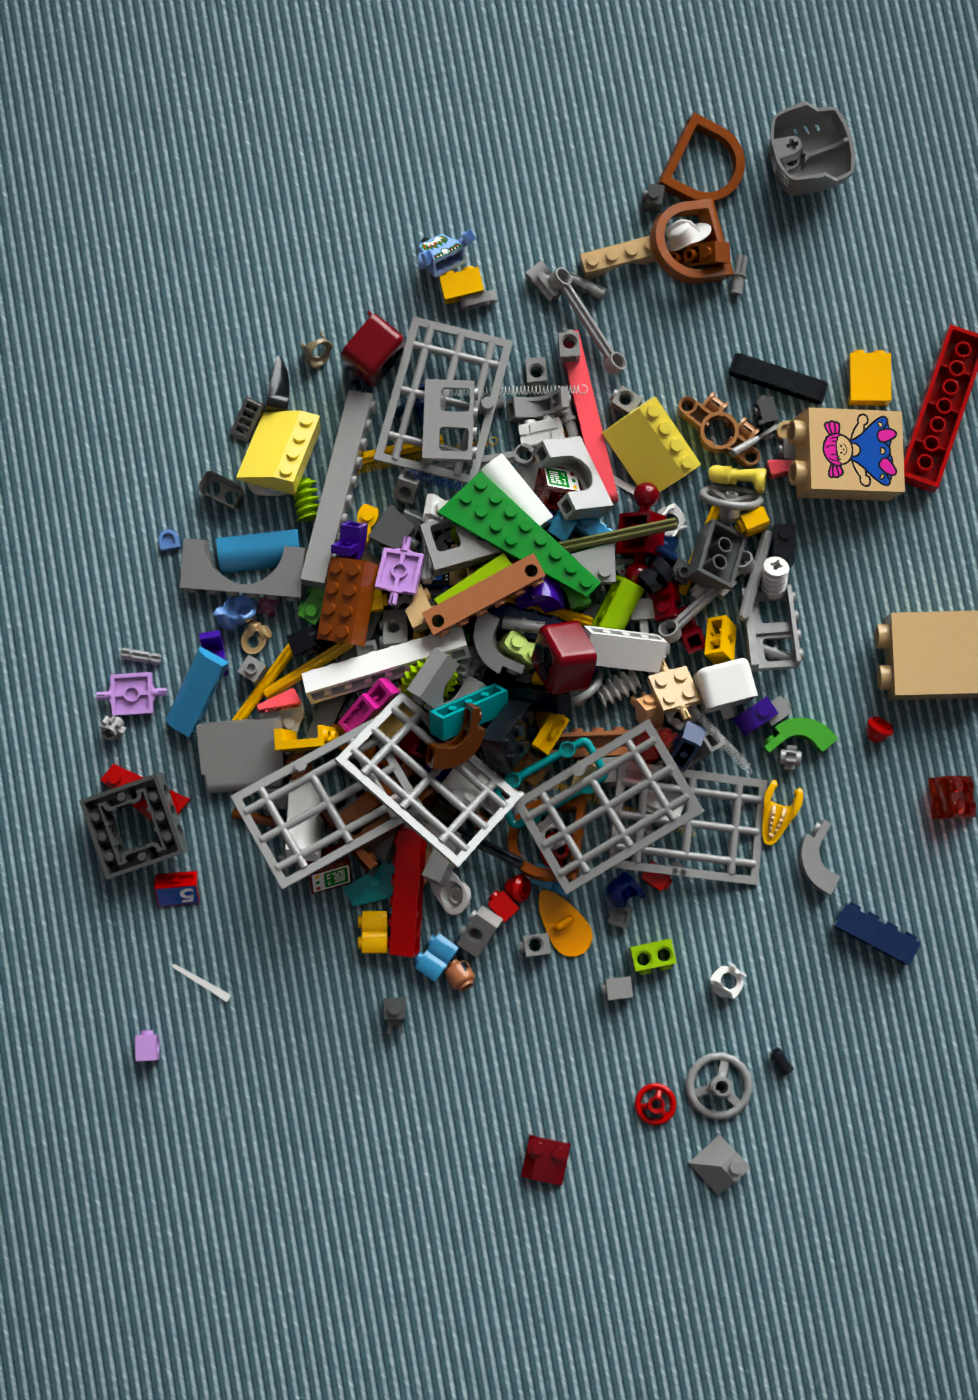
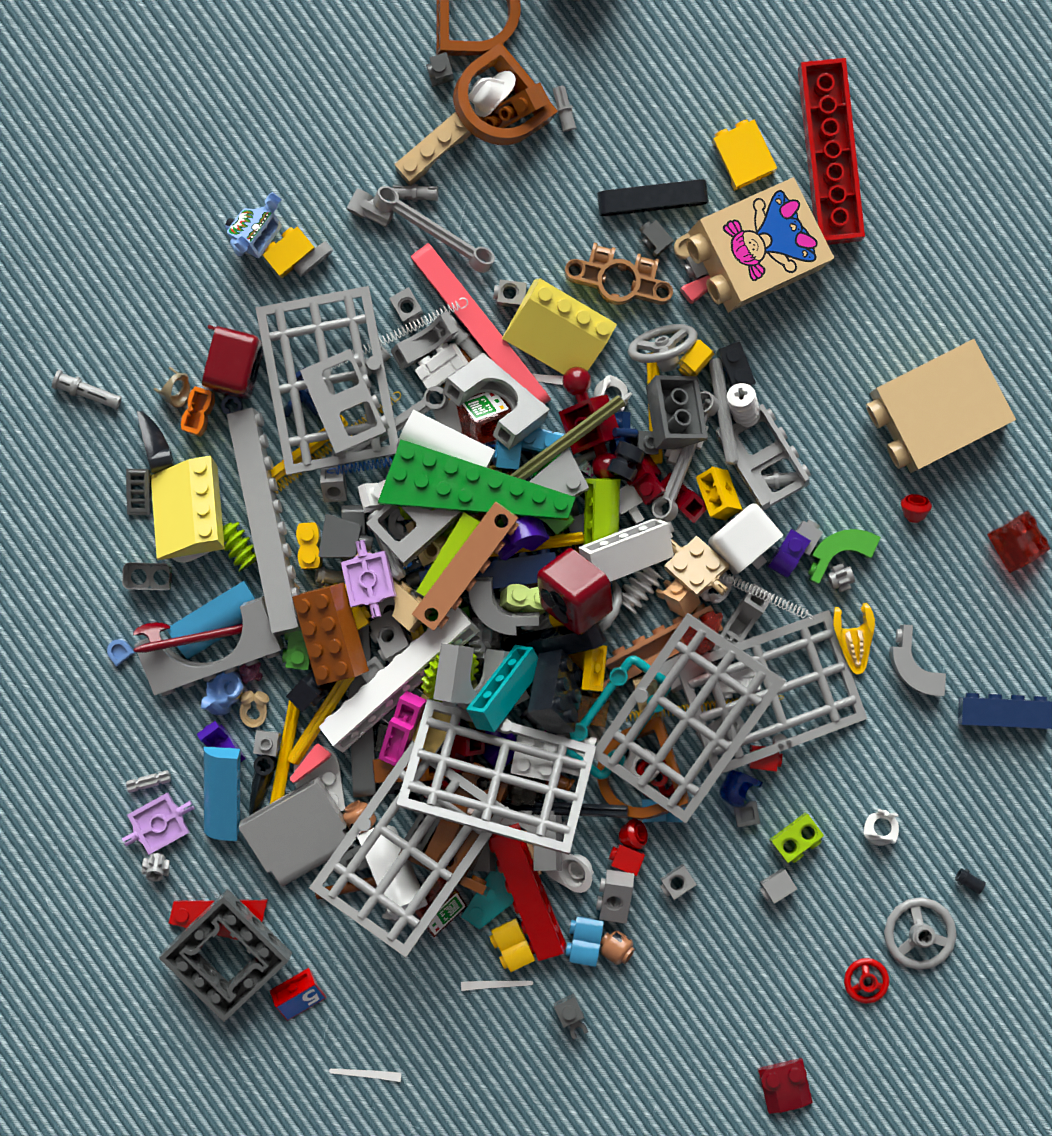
camera: 25 degrees left, 5 degrees up
(202, 544) = (152, 632): none -> dark red piece
(232, 699) = (261, 782): none -> black piece
(236, 313) = (76, 386): none -> light grey pin
(287, 741) = (337, 800): yellow panel -> none
(322, 380) = (199, 406): none -> orange brick
(333, 954) = (472, 985): none -> white sticker
(352, 540) = (304, 569): dark purple brick -> none
(462, 746) = (515, 730): reddish brown arch -> none
(521, 625) = (516, 574): light grey pin -> none
(564, 924) = (696, 848): light orange shield -> none
(566, 354) = (432, 274): light grey brick -> none
(687, 744) = (736, 618): dark blue brick -> none
(719, 1165) = (956, 1010): light grey slope -> none
(729, 475) = (651, 320): light yellow piece -> none
(766, 435) = (653, 283): light grey piece -> none

